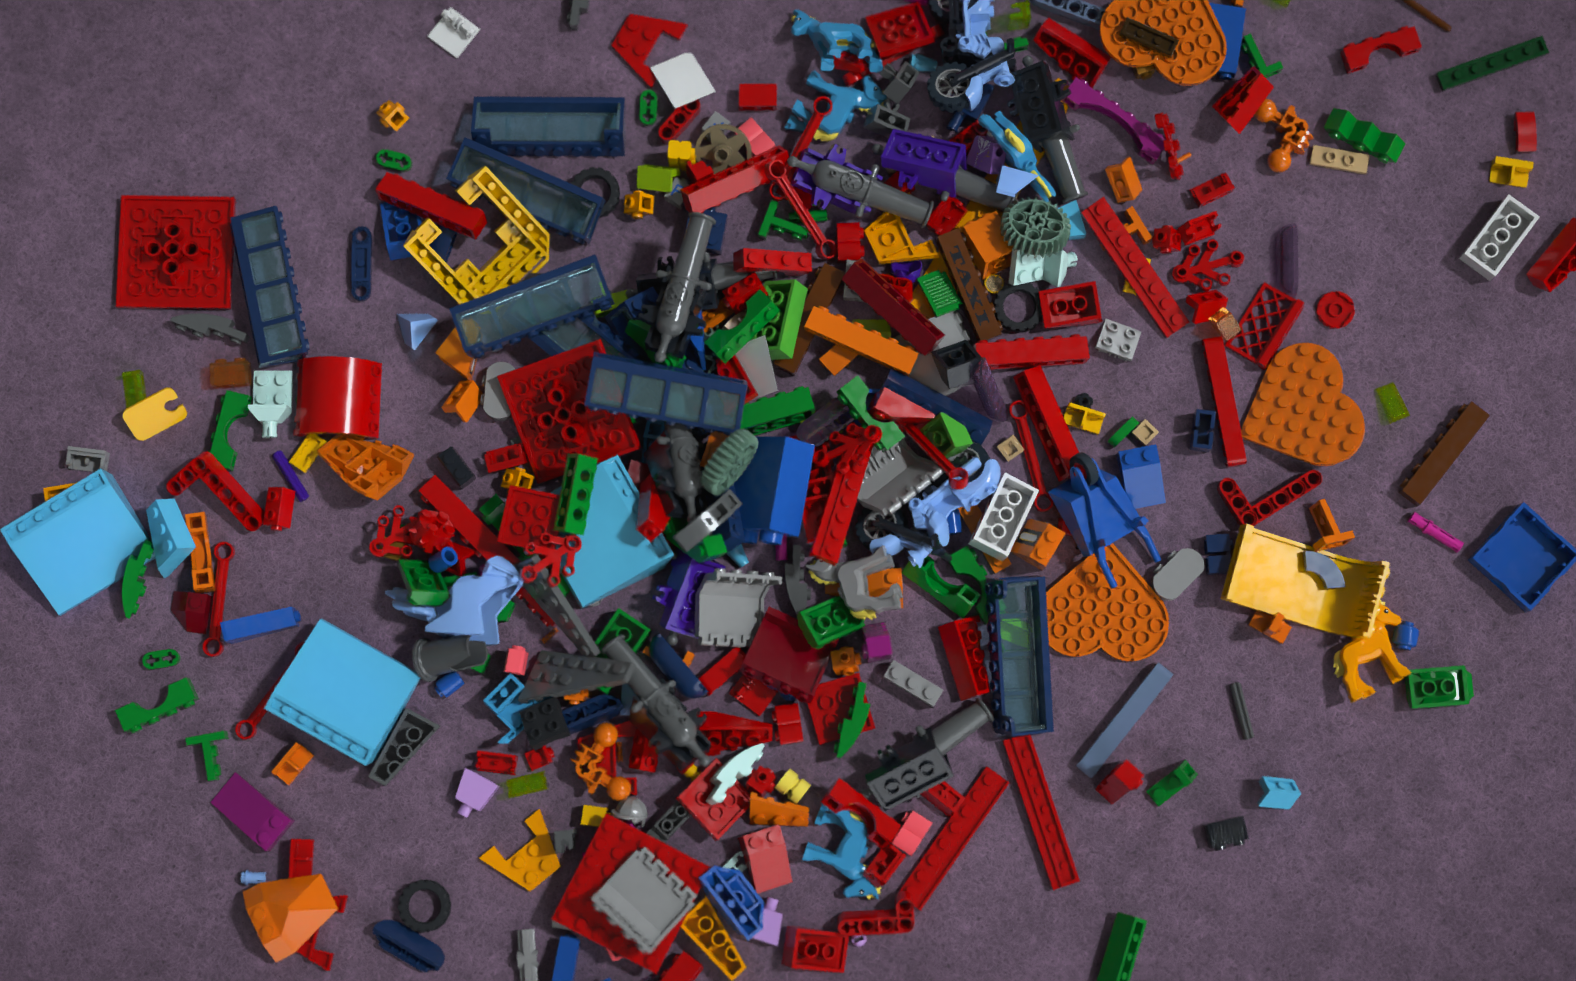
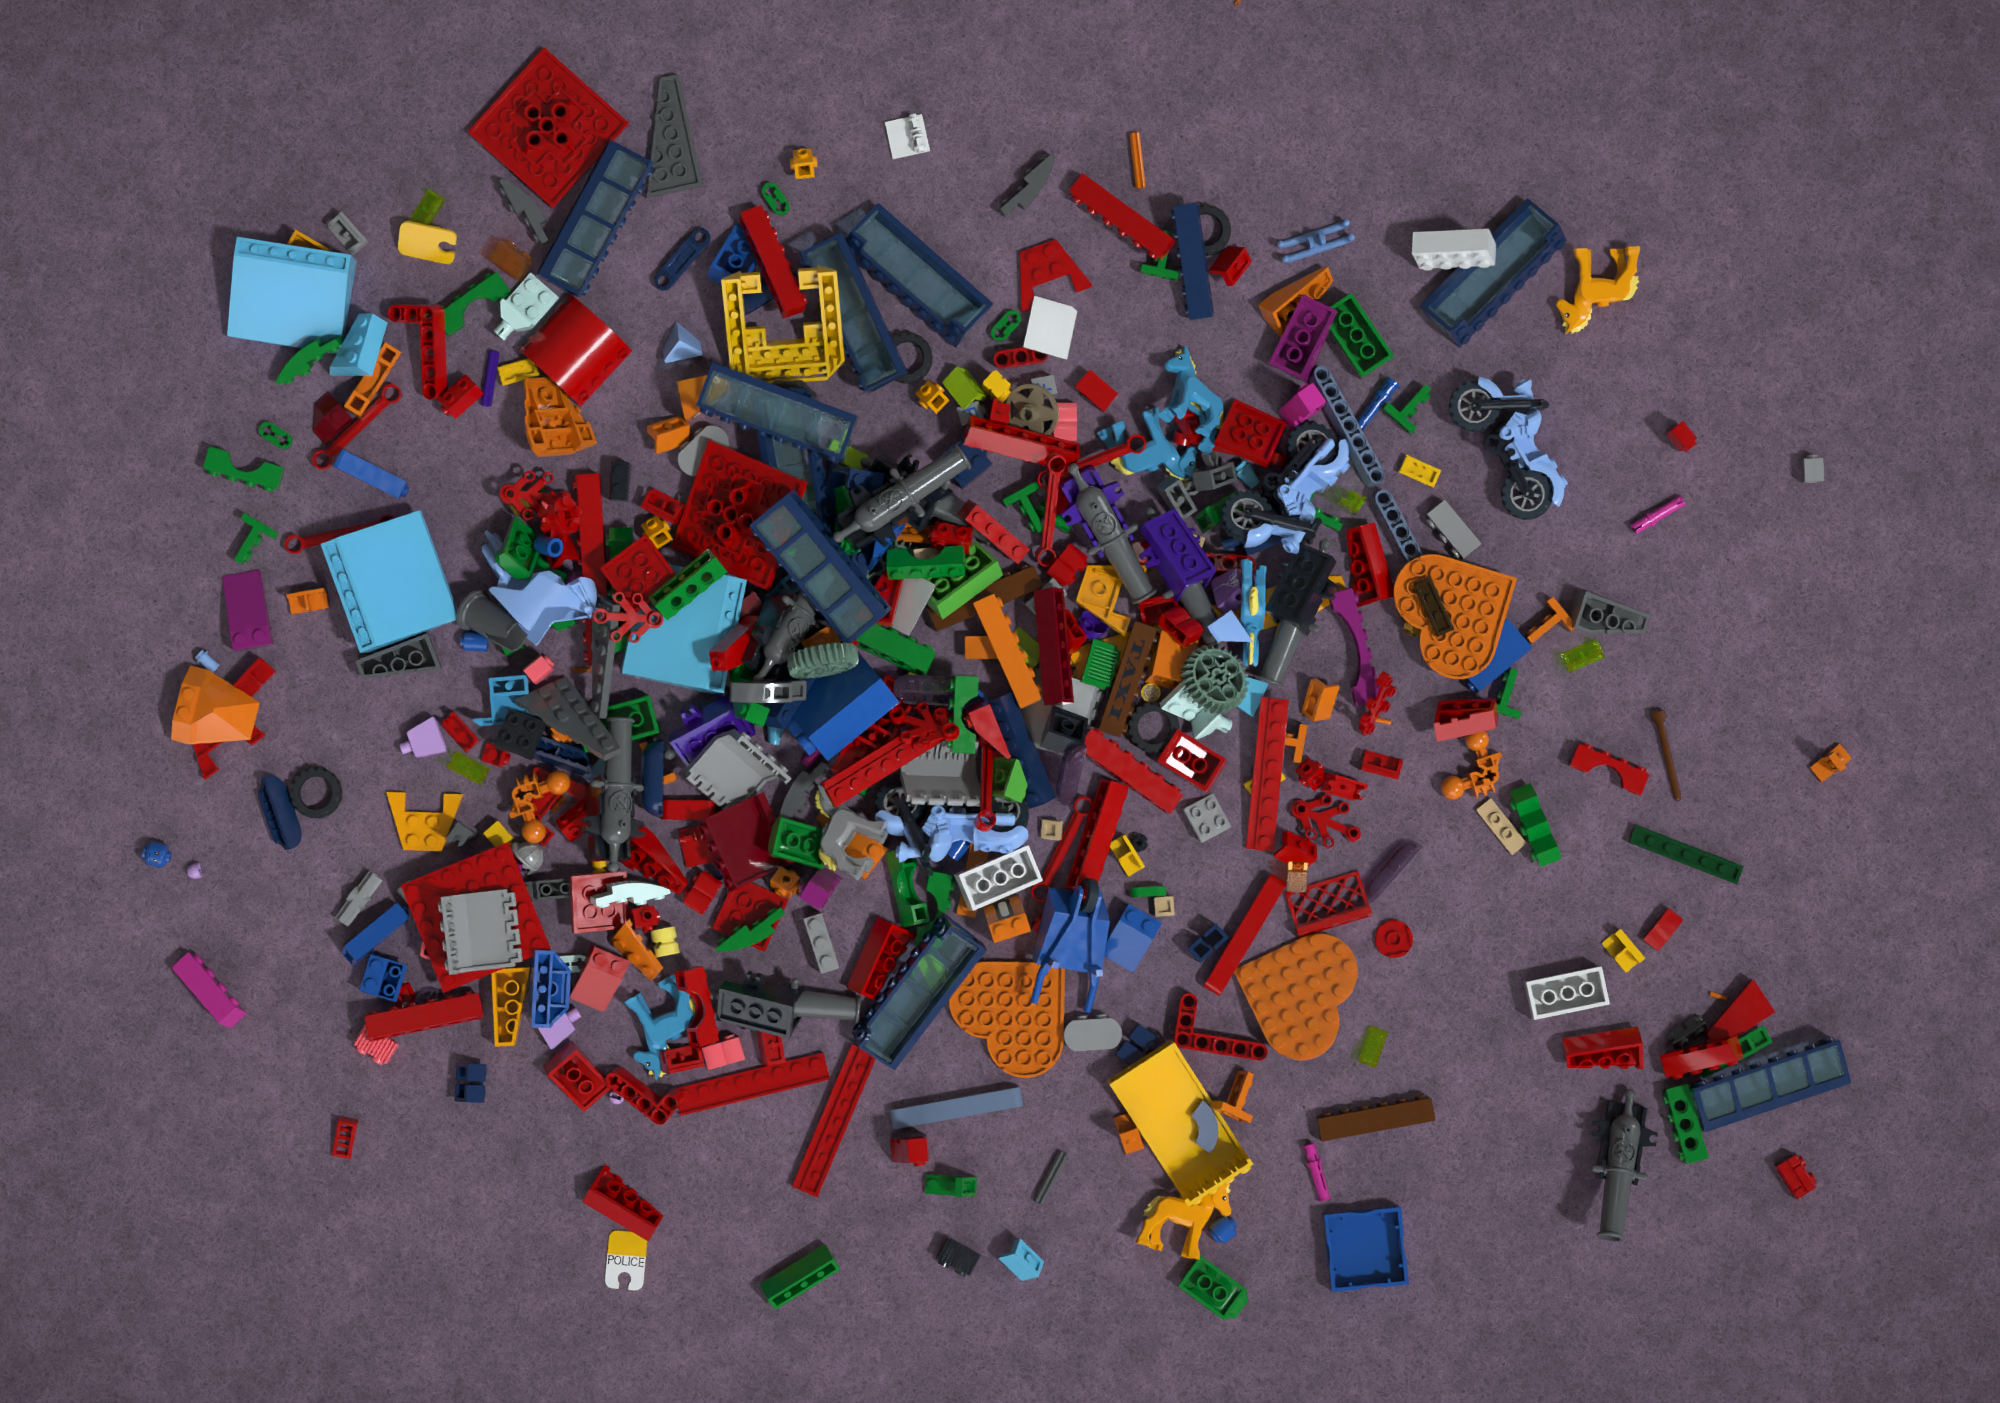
camera: 40 degrees right, 5 degrees up
(281, 185) = (673, 144): none -> dark grey wing
(924, 113) = (1211, 515): none -> green bracket
(972, 210) = (1180, 625): none -> red brick

